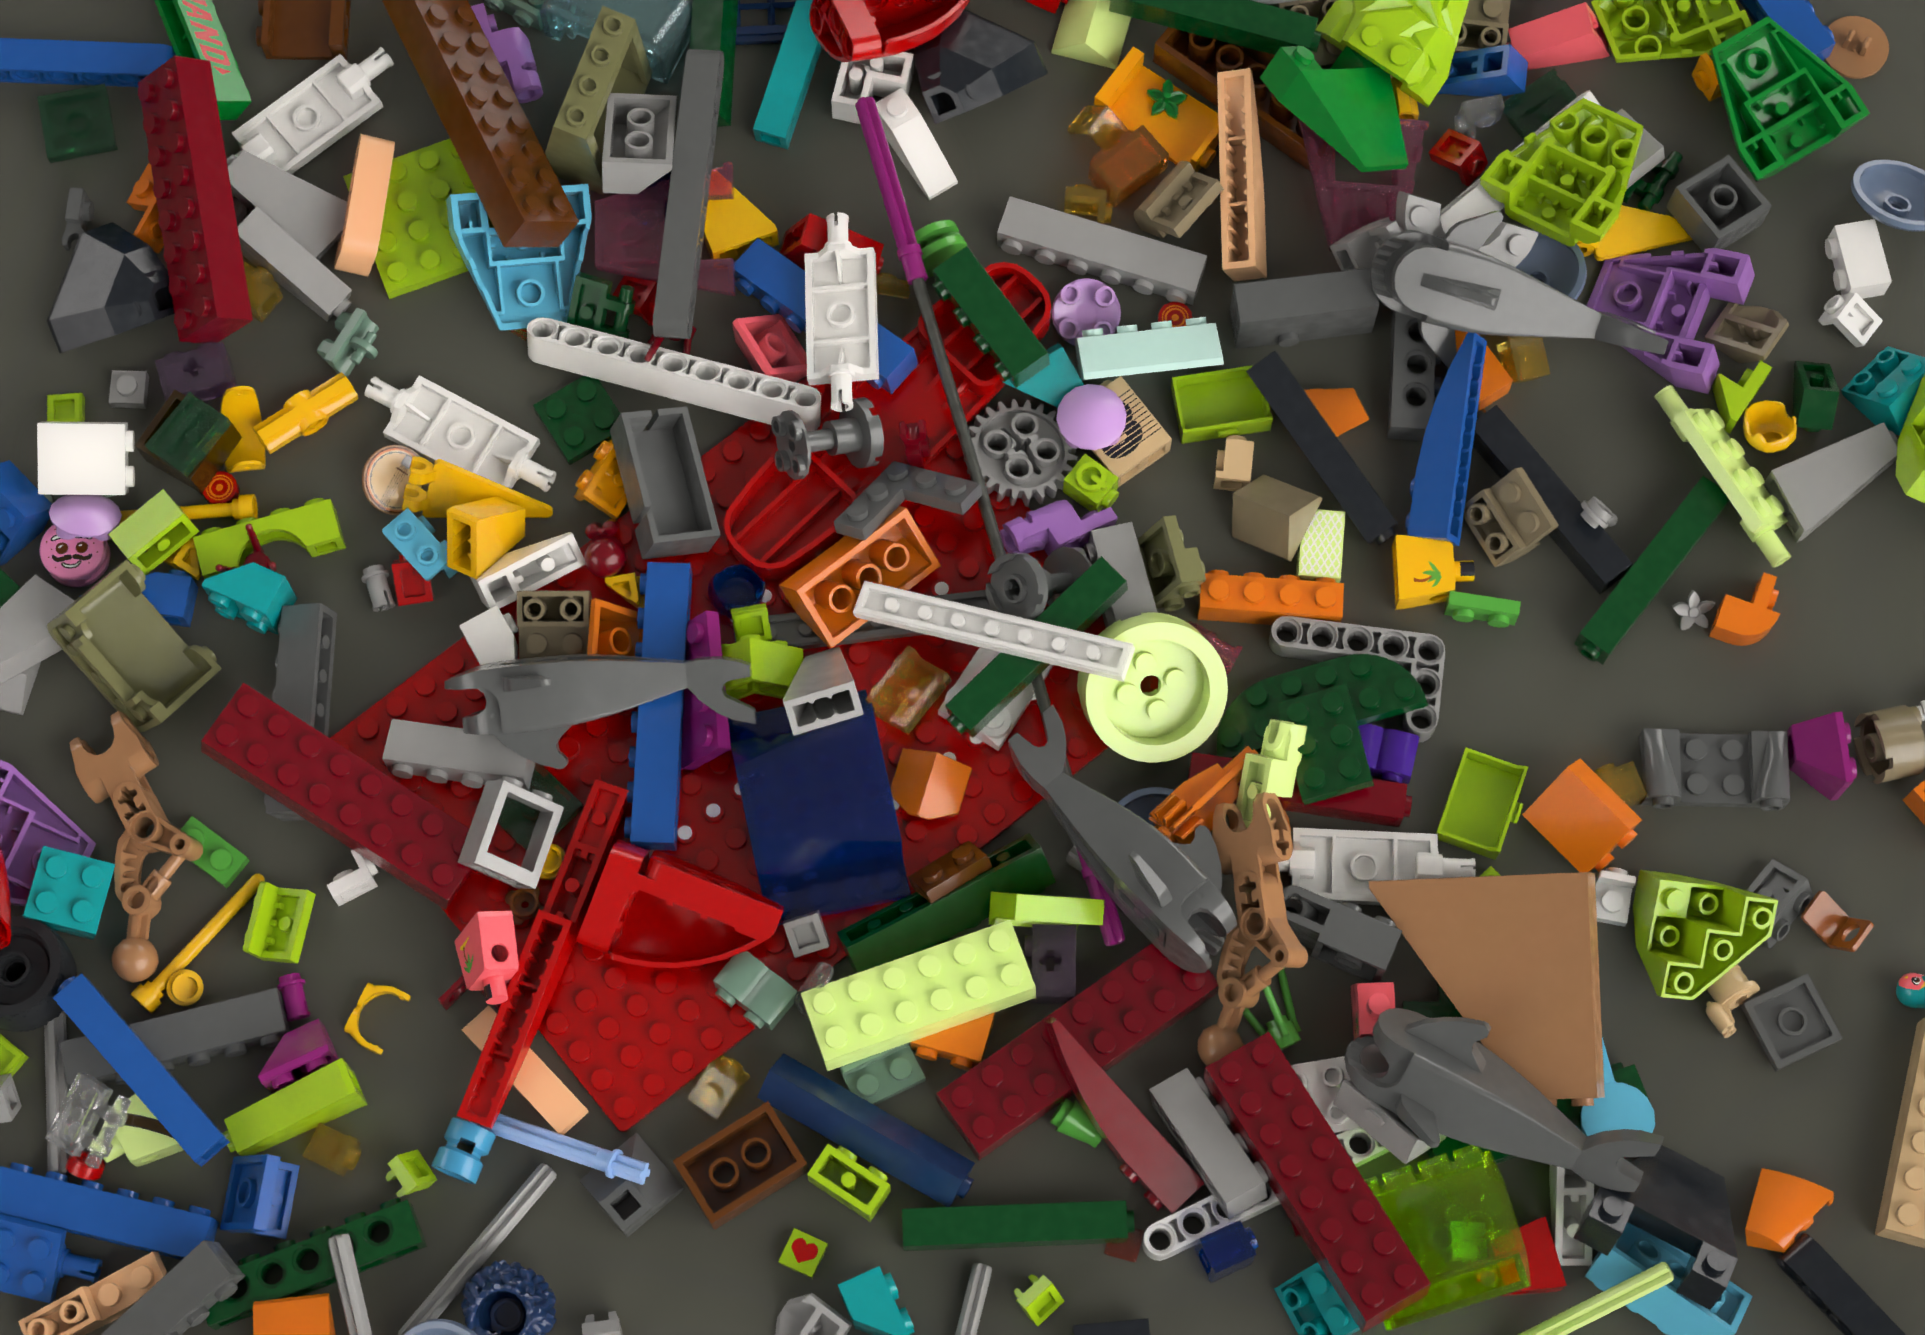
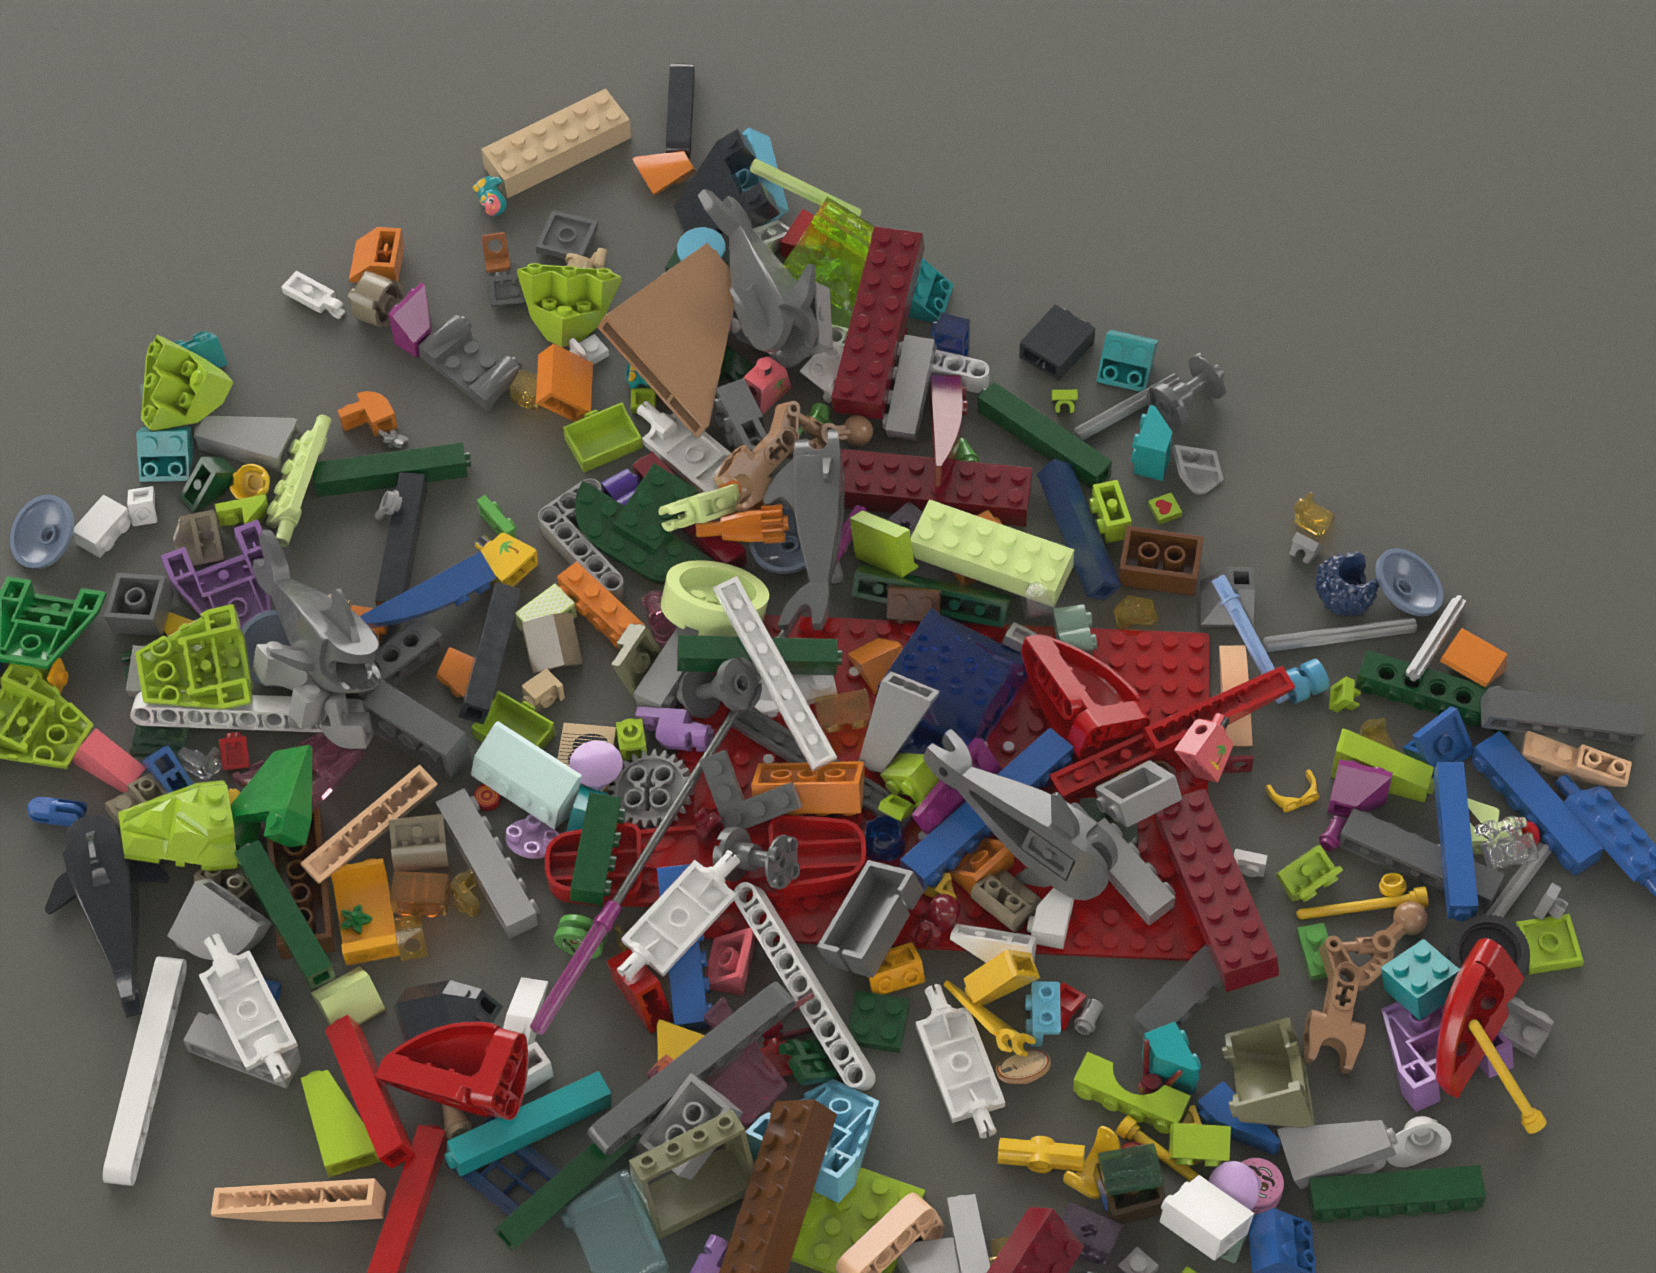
camera: 135 degrees left, 15 degrees down
(352, 344) = (988, 1173): sand green hips -> none
(1509, 518) = (432, 545): dark tan brick -> none

